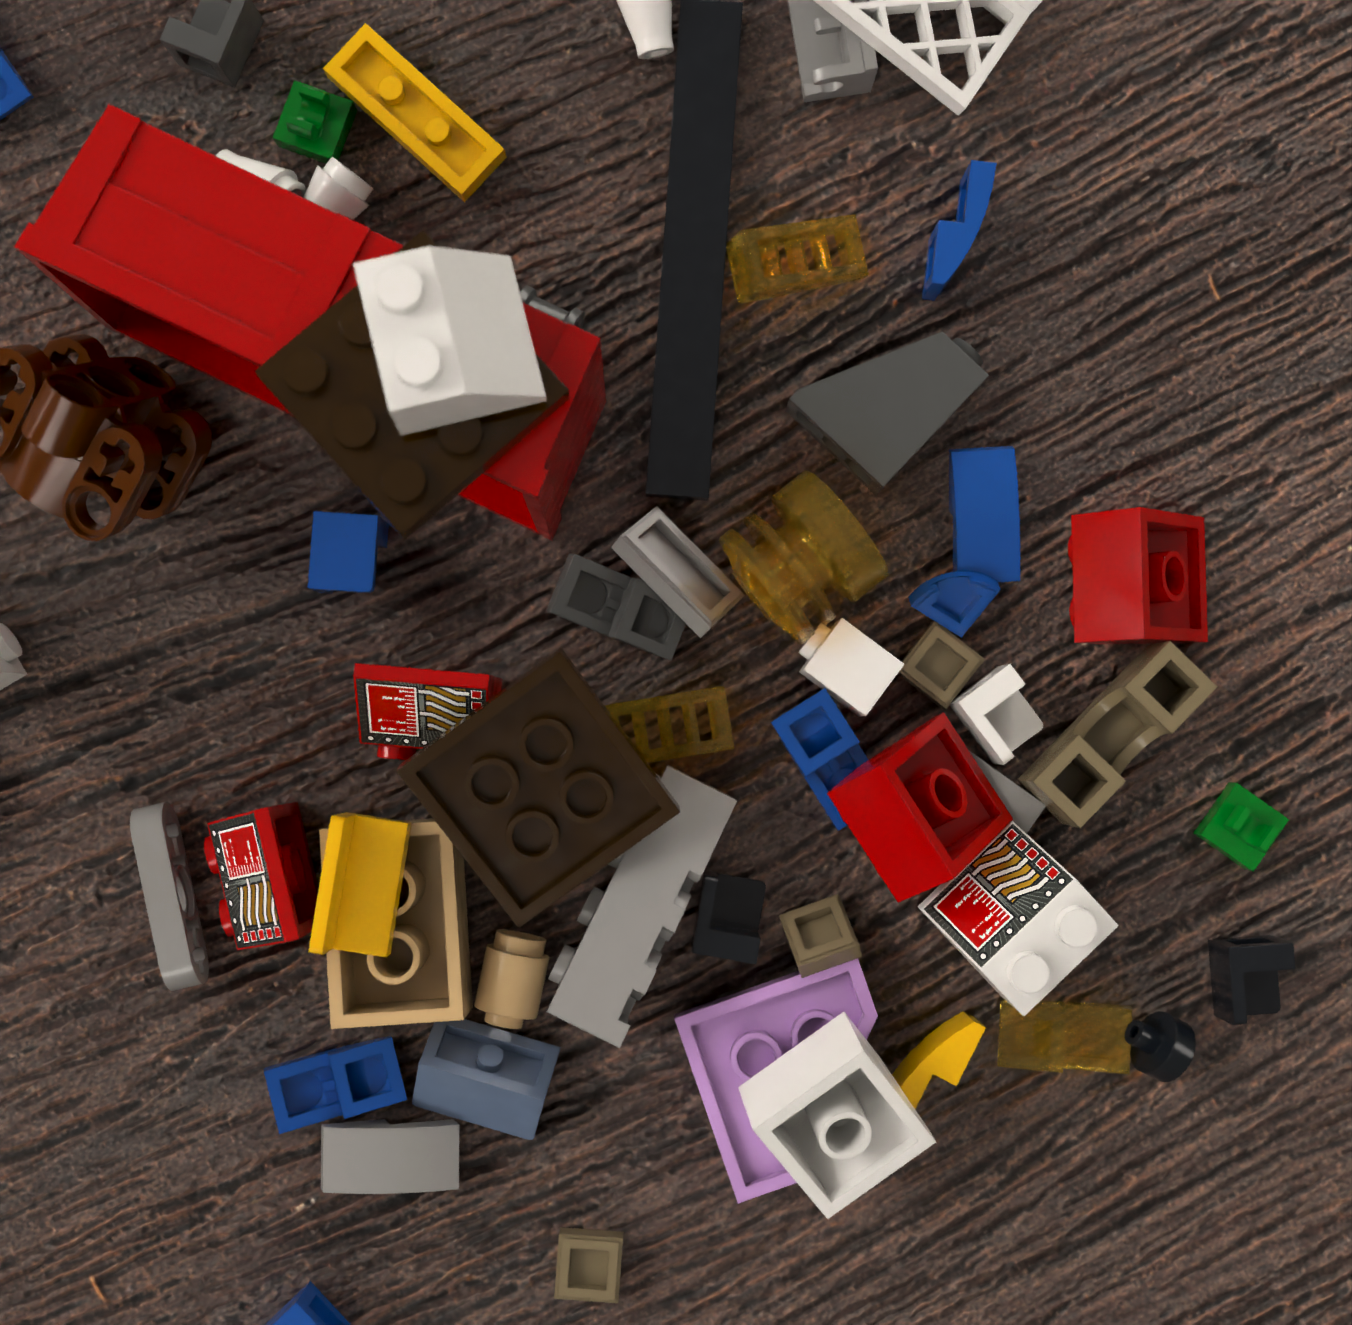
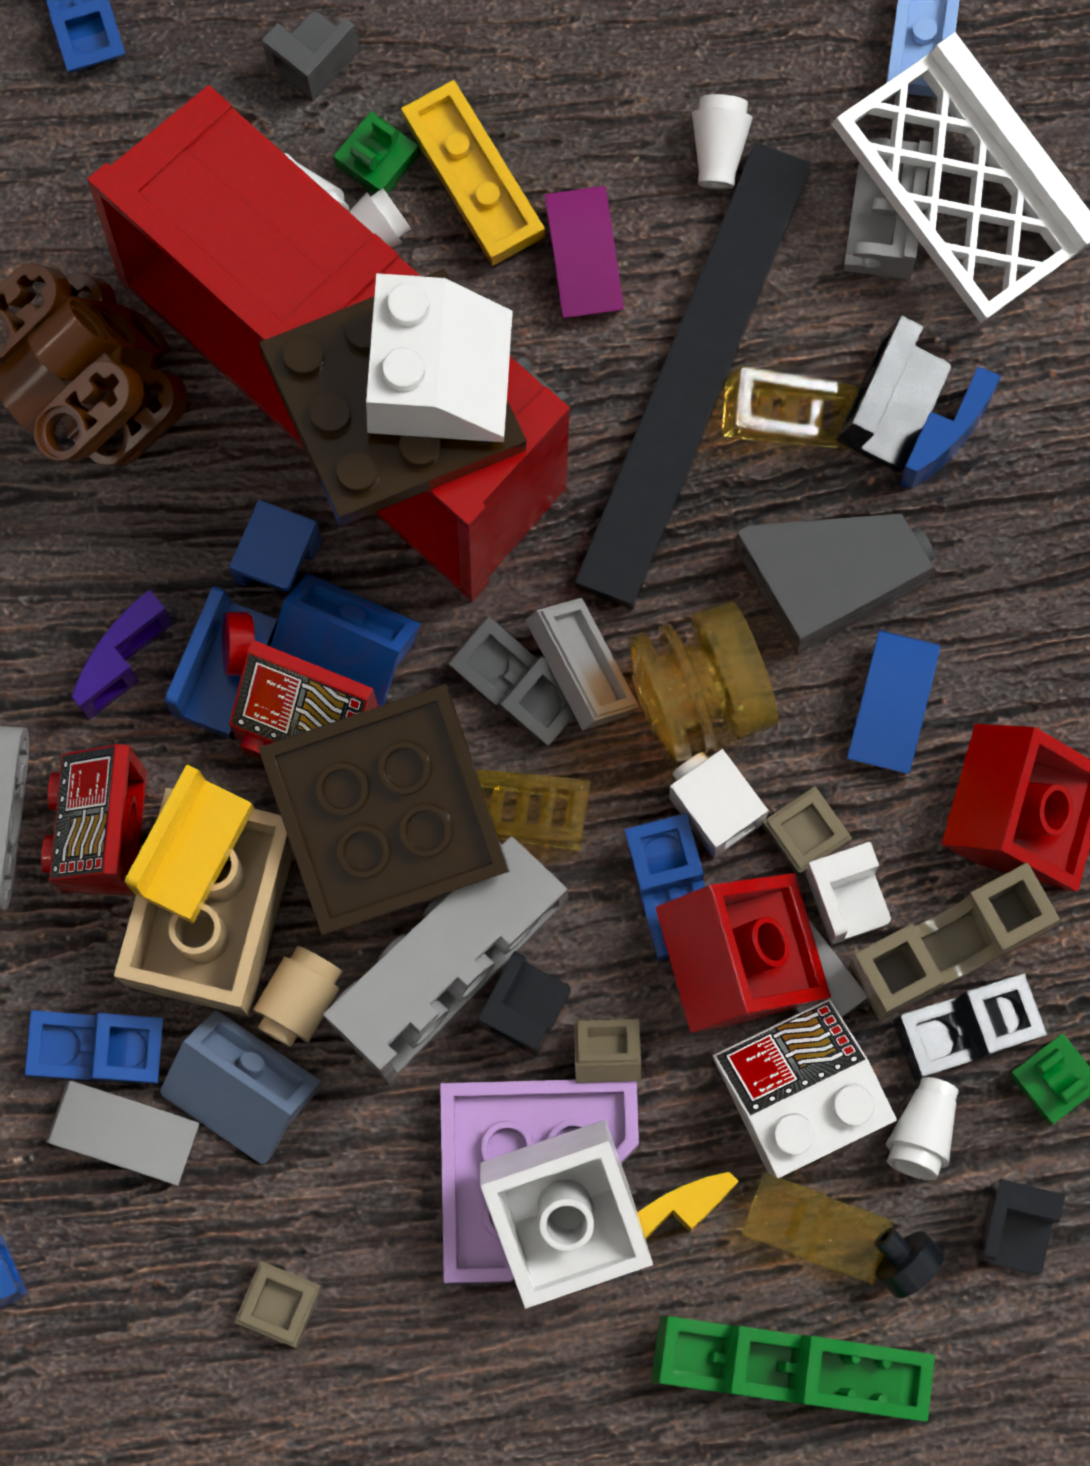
camera: 25 degrees right, 10 degrees down
(224, 719) = (106, 670): none -> dark purple slope
(323, 677) = (199, 687): none -> blue panel
(339, 657) = (236, 640): none -> red tile
(440, 619) = (344, 633): none -> blue panel
(549, 160) = (584, 251): none -> magenta slope
(894, 214) = (894, 397): none -> panel
(955, 599) = (839, 771): blue tile -> none
(1082, 1173) = (793, 1368): none -> green slope
(1139, 913) = (924, 1132): none -> white cone
(1151, 800) = (969, 1027): none -> slope

